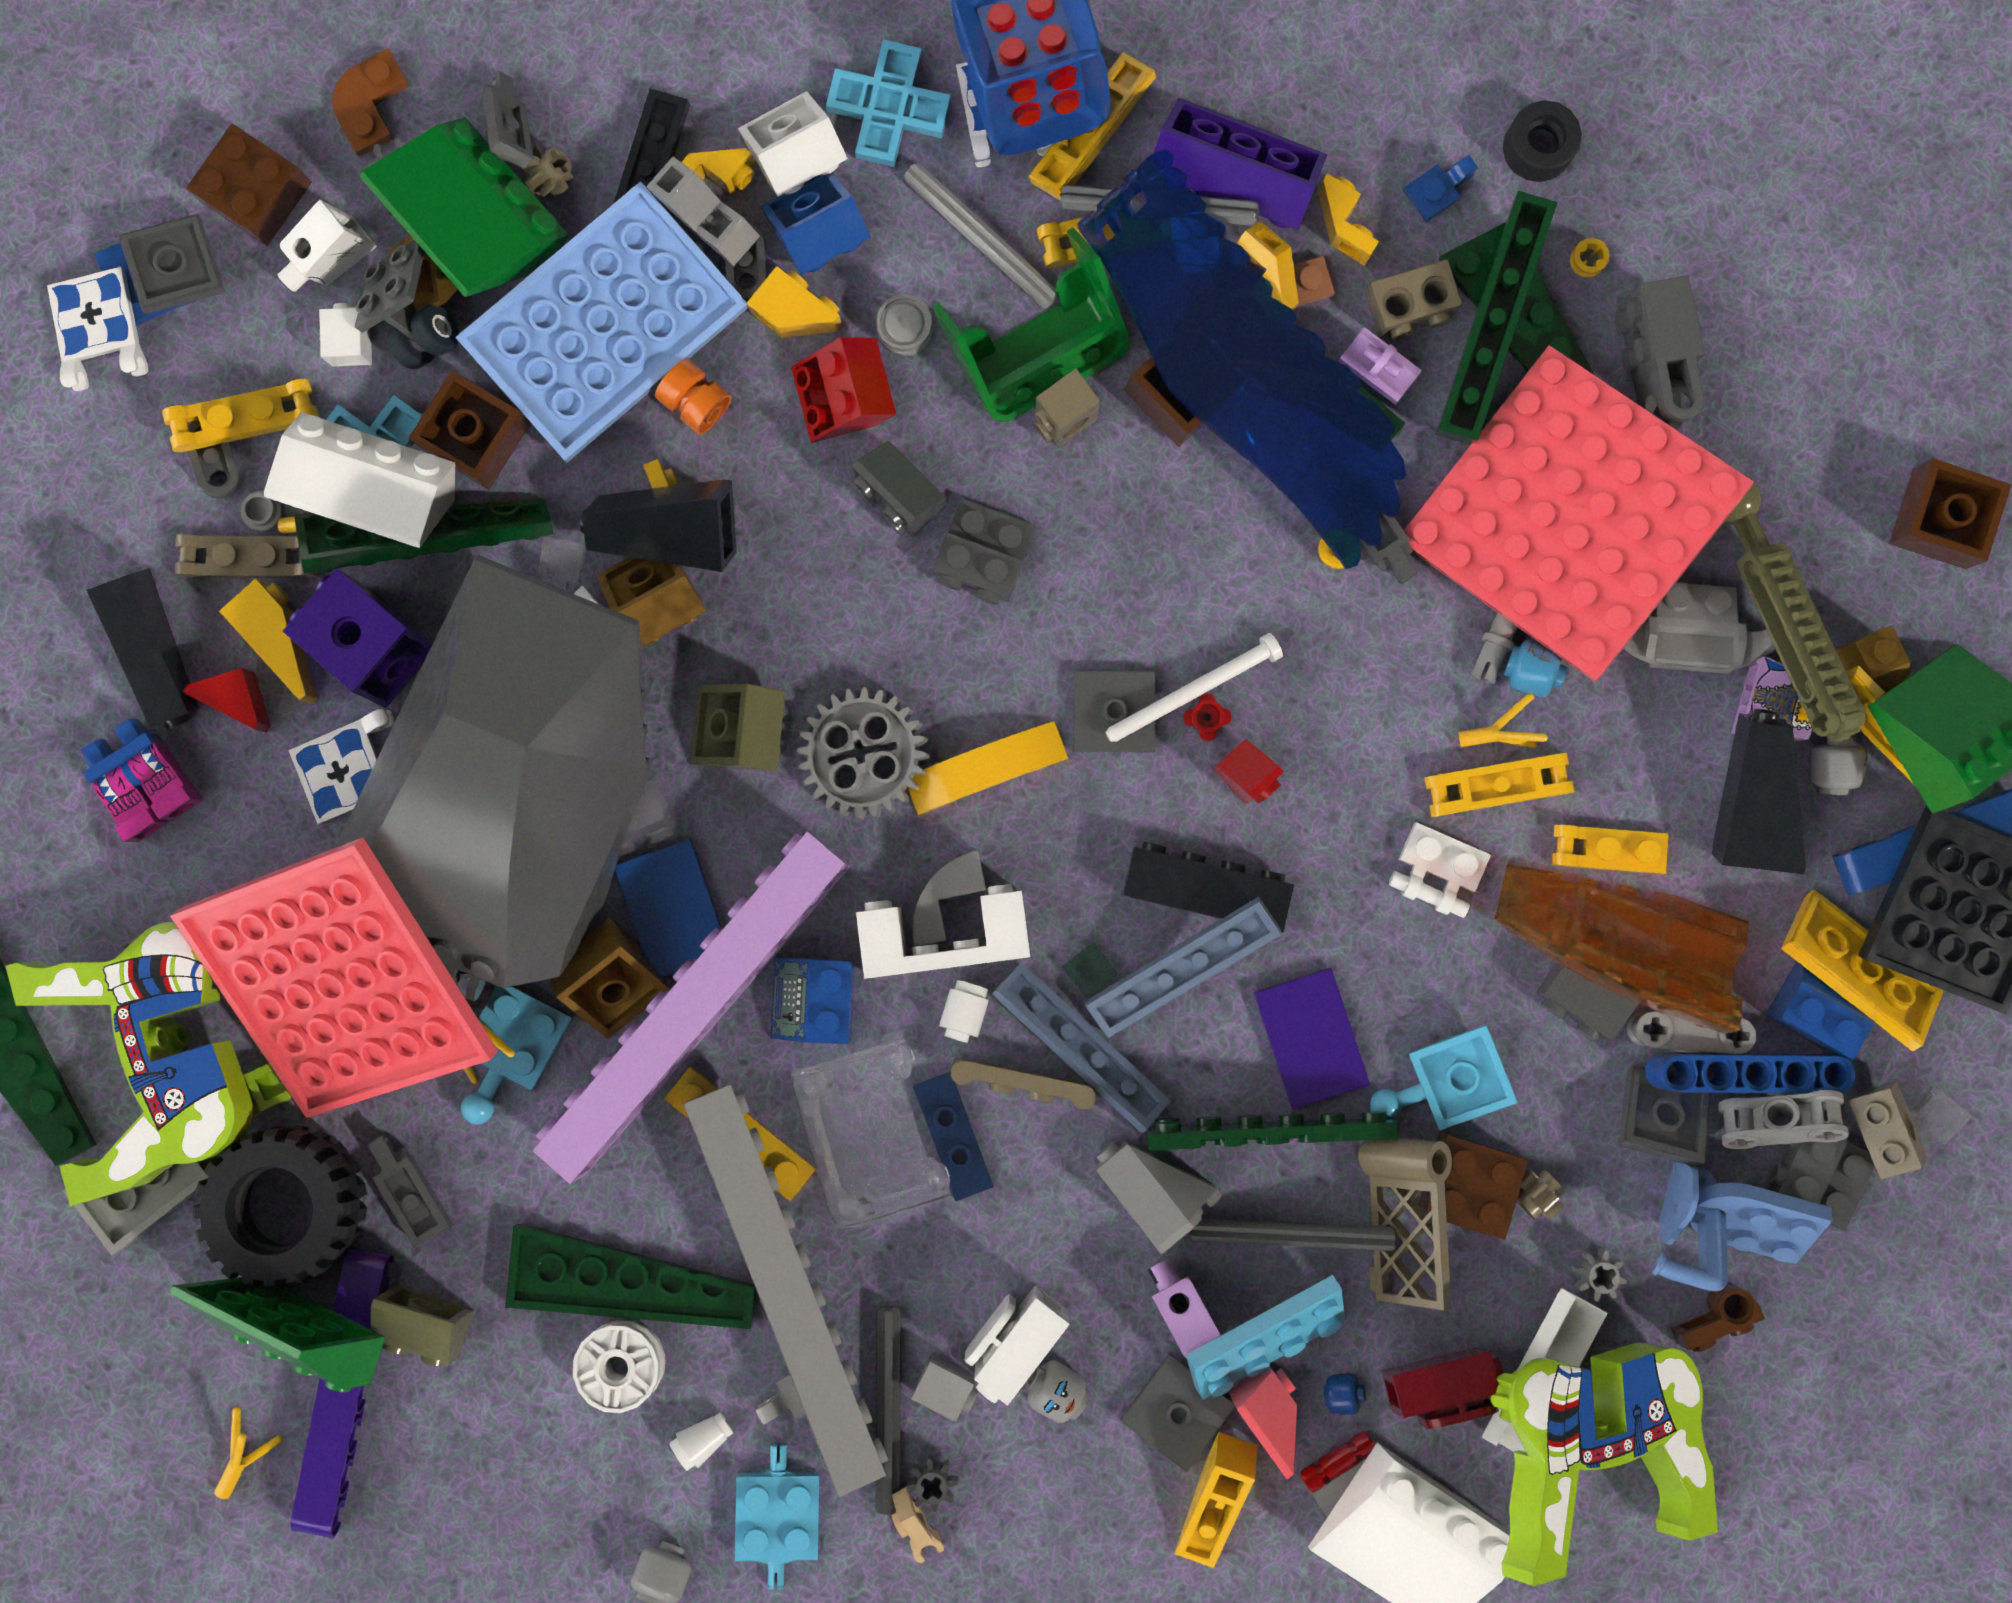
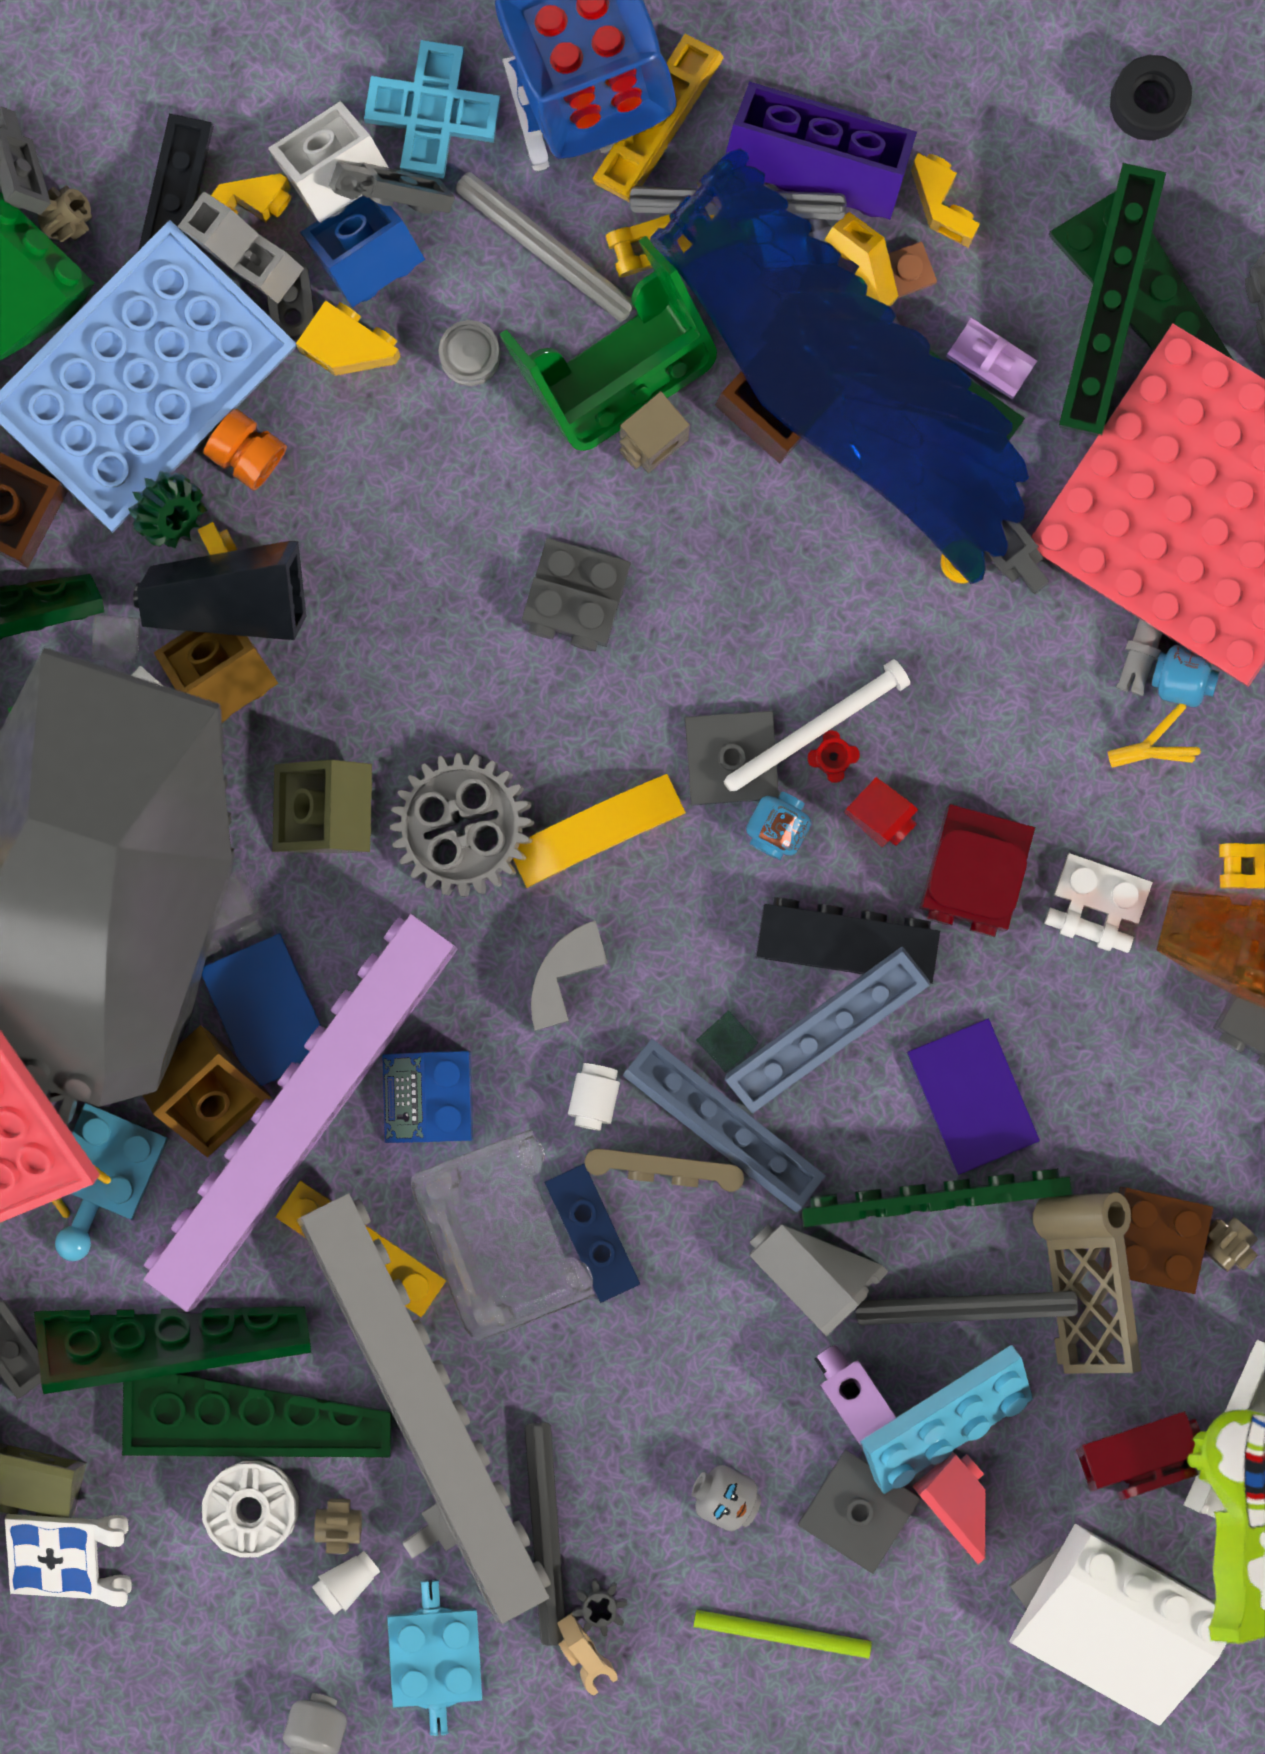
camera: 10 degrees left, 0 degrees up
(443, 1398) = (61, 1557): none -> white flag
(499, 1208) = (100, 1350): none -> dark green wing
(616, 444) = (167, 509): none -> dark green gear
(697, 1388) = (338, 1526): none -> dark tan gear
(843, 388) = (408, 428): red slope -> none
(844, 166) = (390, 186): none -> dark grey hinge
(885, 947) = (503, 1031): white plate -> none
(898, 487) = (478, 533): dark grey slope -> none
(945, 1389) = (605, 1505): light grey brick -> none
(1015, 1343) = (677, 1448): white brick -> none
(1098, 1520) = (782, 1634): none -> lime bar
(1152, 776) = (778, 825): none -> dark azure head
(1218, 1499) = (908, 1600): yellow slope -> none
(1331, 831) = (977, 870): none -> dark red brick
(1337, 1461) = (1035, 1550): red axle -> none
(1343, 1394) = (1037, 1478): blue piece -> none
(1408, 291) = (1017, 273): dark tan brick -> none
(1436, 191) = (1040, 159): blue plate -> none
(1457, 1077) = (1132, 1126): medium azure plate -> none
(1499, 784) = (1156, 805): yellow plate -> none
(1599, 248) = (1202, 212): yellow bush -> none

